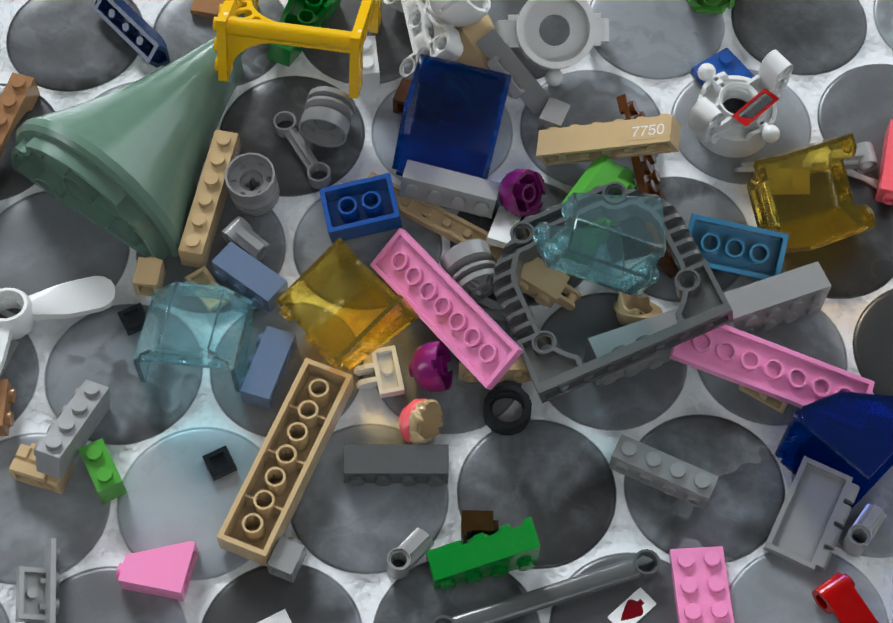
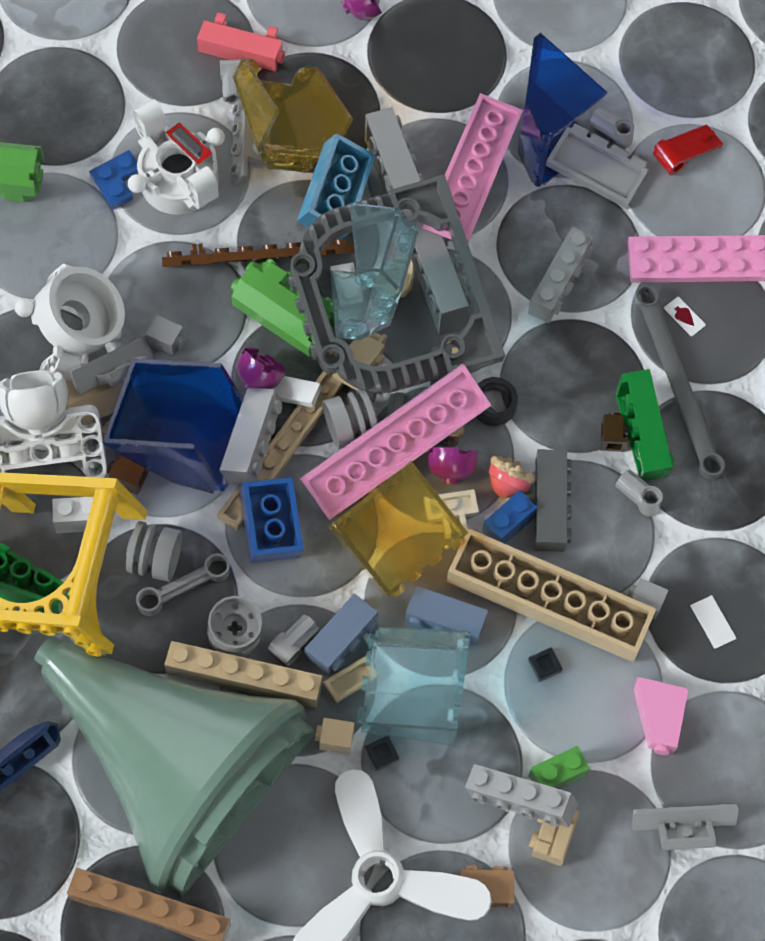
camera: 90 degrees left, 5 degrees up
(371, 421) = (510, 518): none -> blue brick
(612, 139) = (216, 278): tan brick -> none

